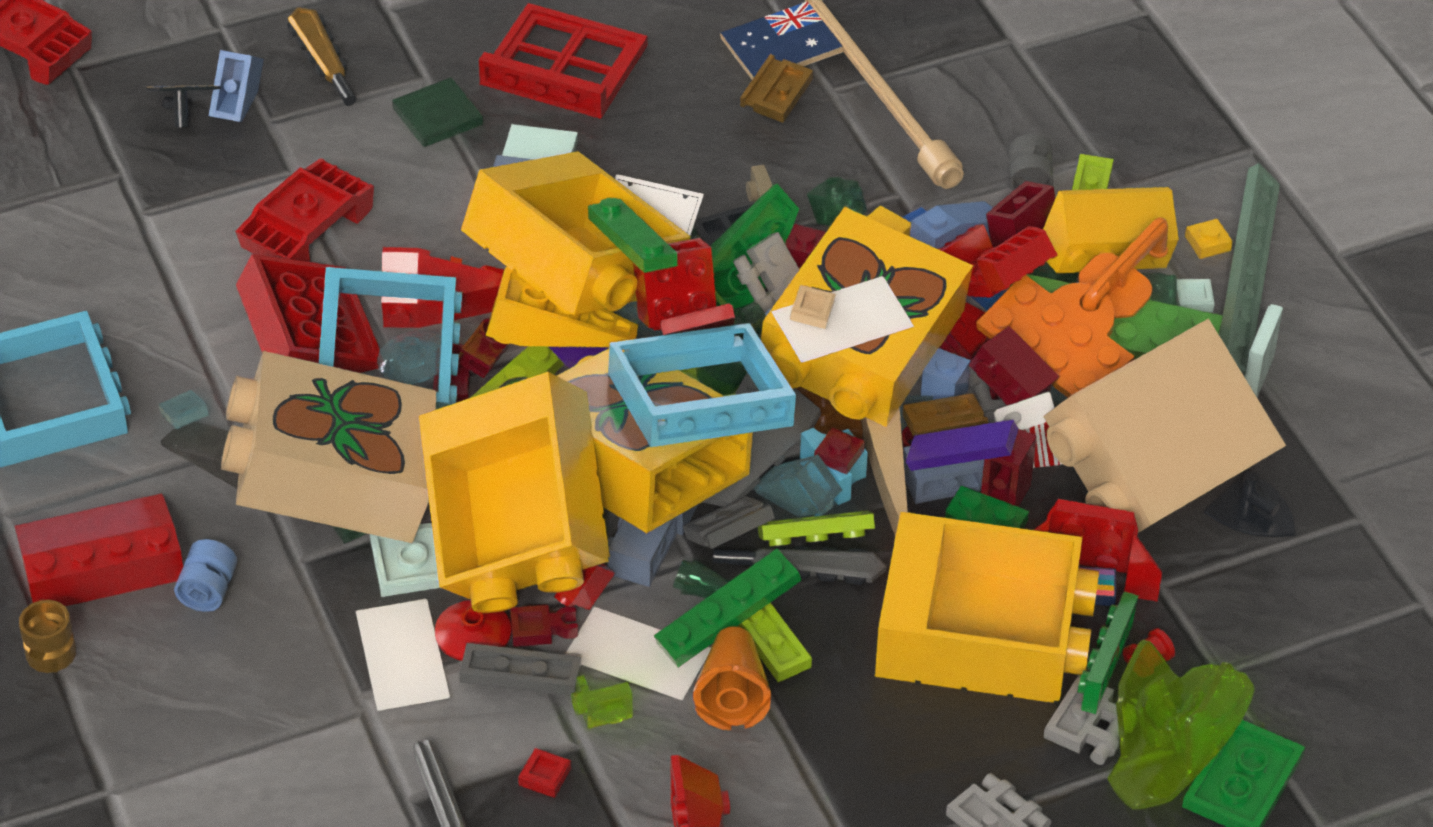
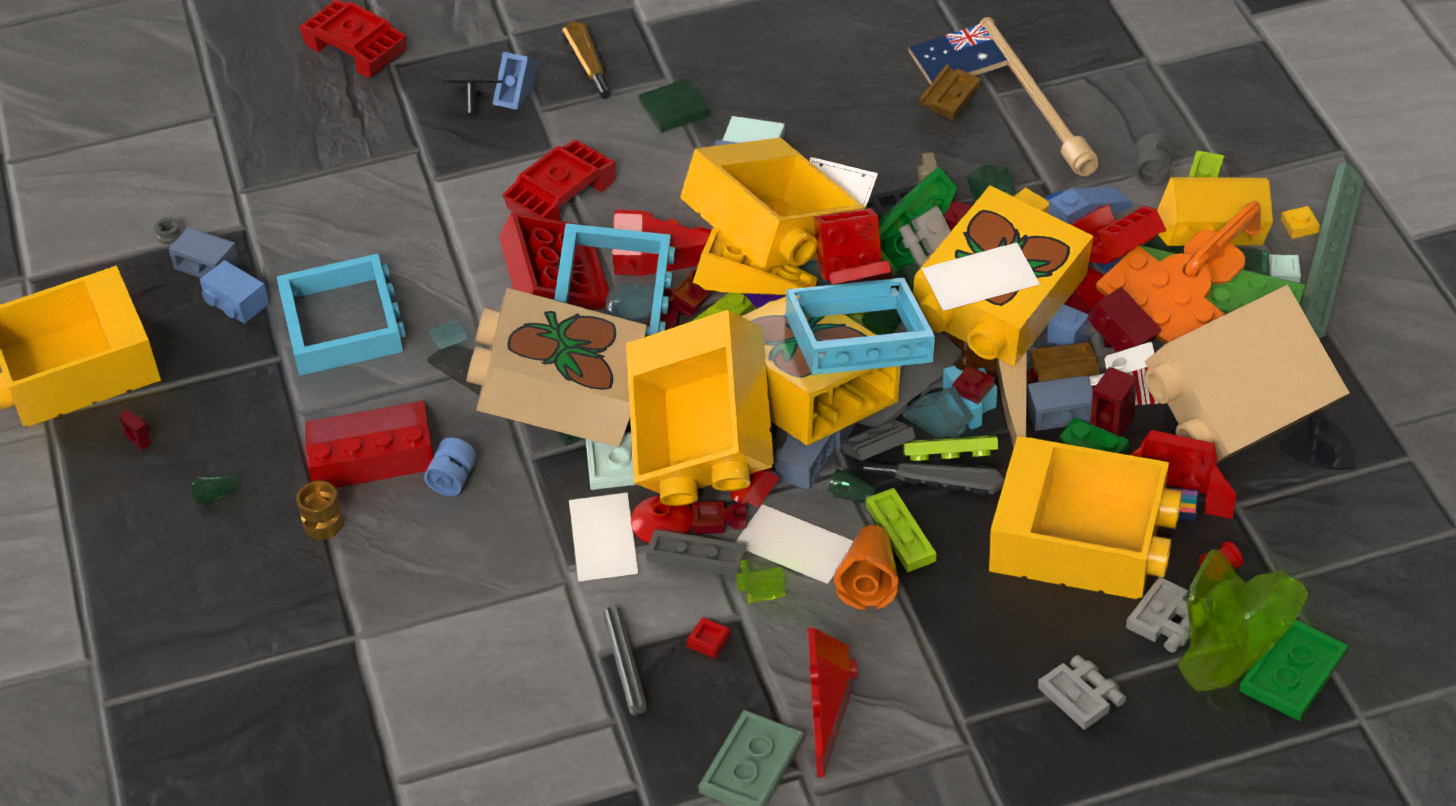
camera: 10 degrees right, 0 degrees up
(551, 85) = (769, 87): red window -> none
(632, 235) = (814, 204): green plate -> none
(727, 607) = (870, 509): green plate -> none
(812, 306) = (956, 265): tan tile -> none
(962, 445) = (1074, 383): dark purple tile -> none
(1022, 208) = (1143, 191): dark red brick -> none
(1105, 658) = (1188, 553): green plate -> none
(1263, 348) = (1337, 314): light aqua tile -> none

